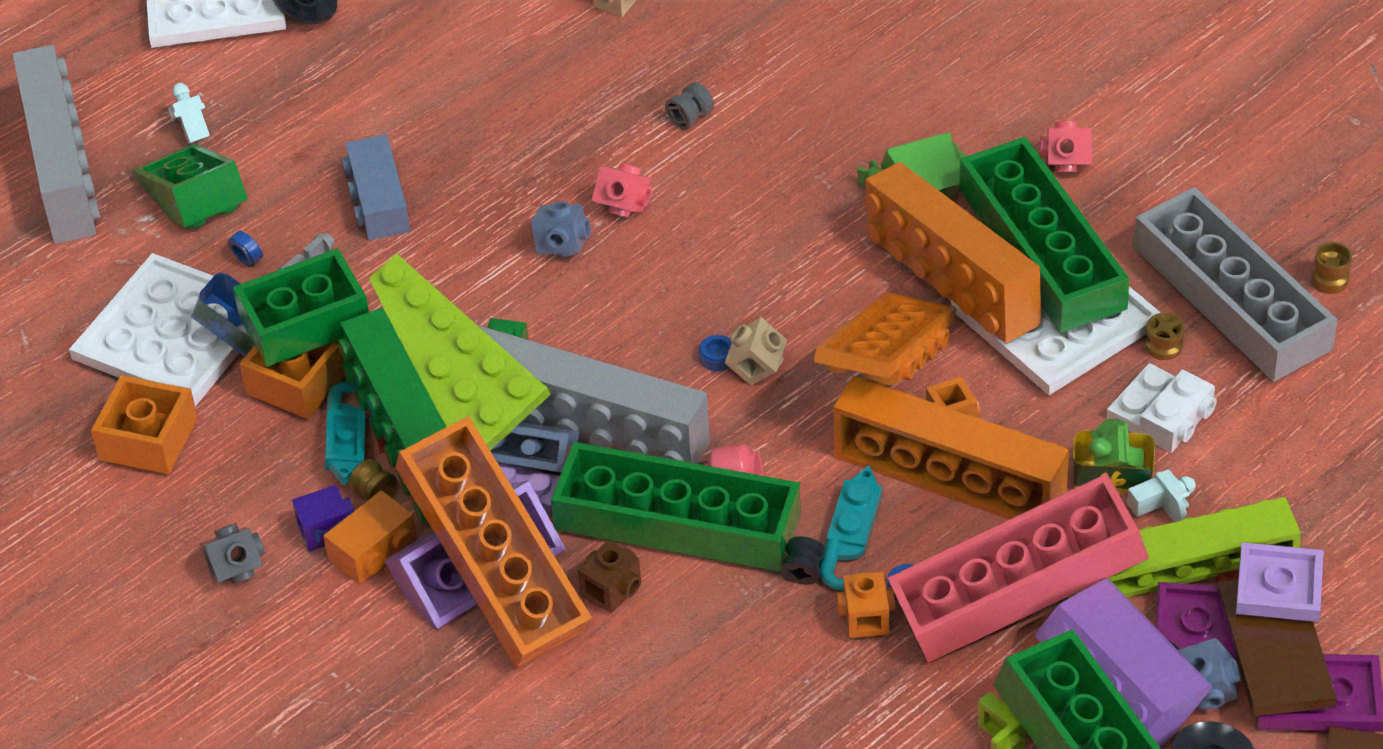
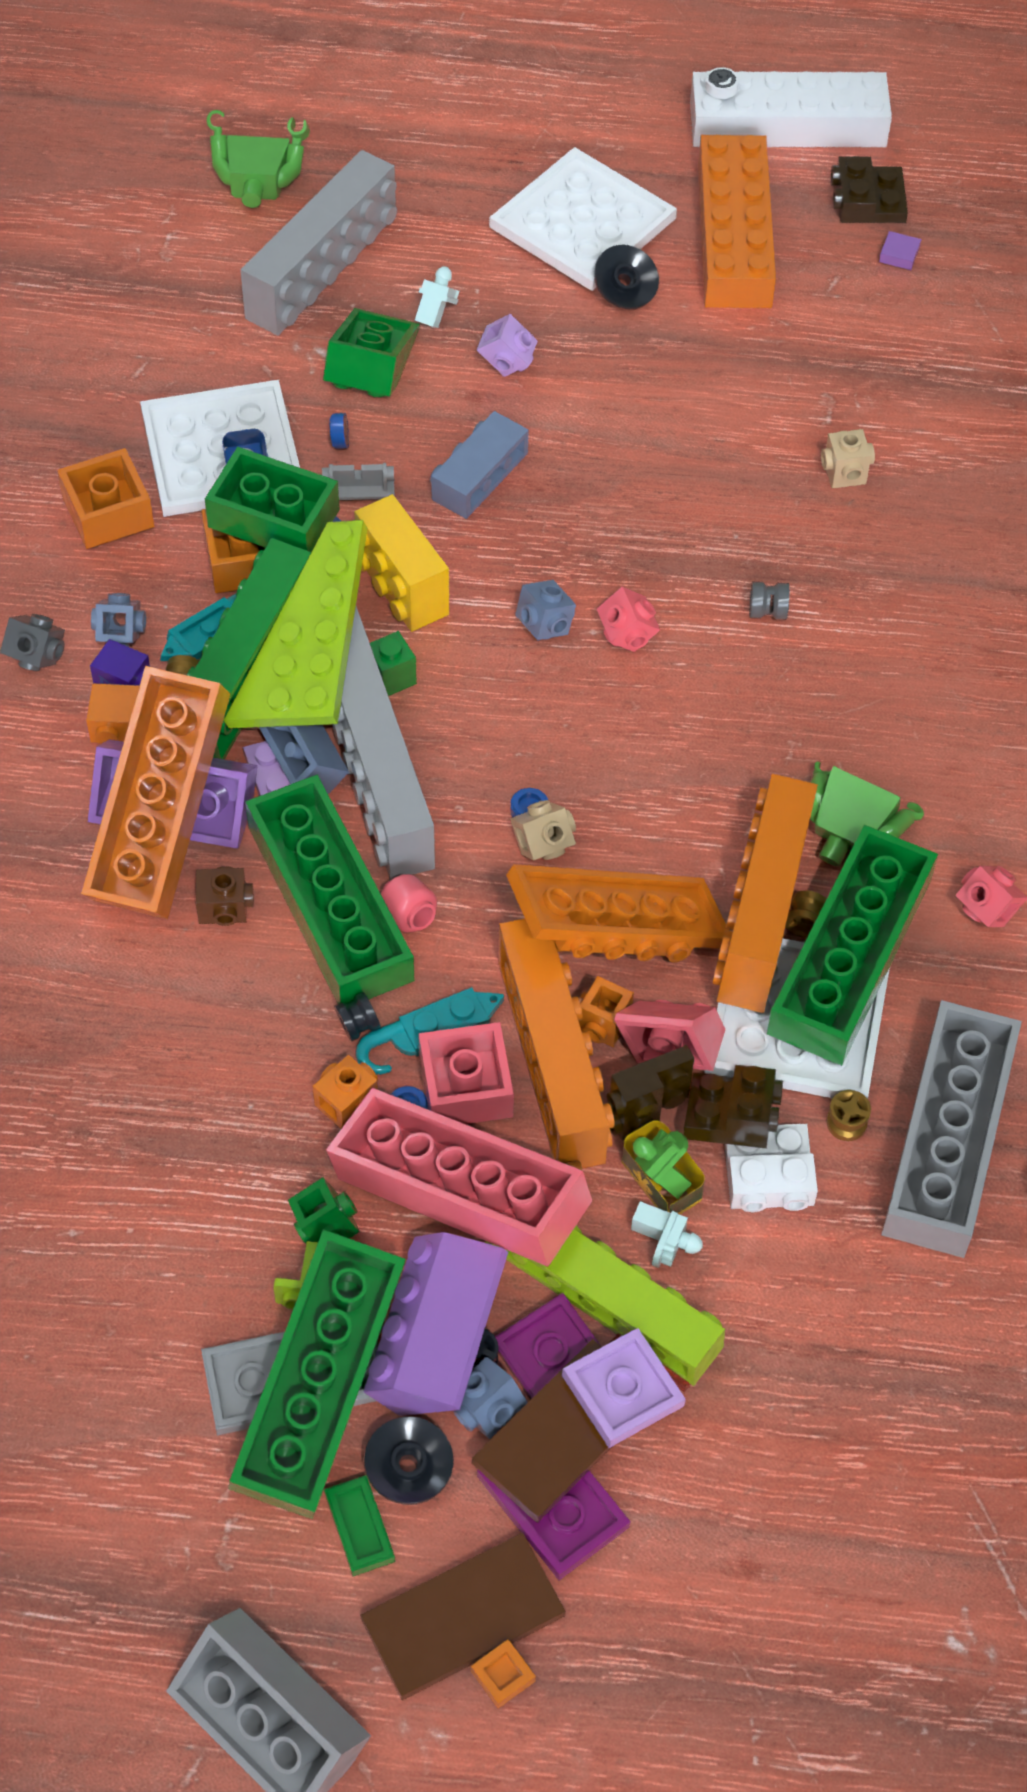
camera: 45 degrees right, 10 degrees up
(274, 487) = (105, 623): none -> sand blue brick
(288, 100) = (507, 345): none -> lavender brick
(449, 266) = (403, 564): none -> yellow brick
(922, 518) = (467, 1073): none -> coral brick
(963, 679) = (323, 1208): none -> green brick
(1013, 381) = (664, 1026): none -> coral slope
(1048, 414) = (645, 1088): none -> dark brown plate
(1101, 387) = (735, 1107): none -> dark brown plate

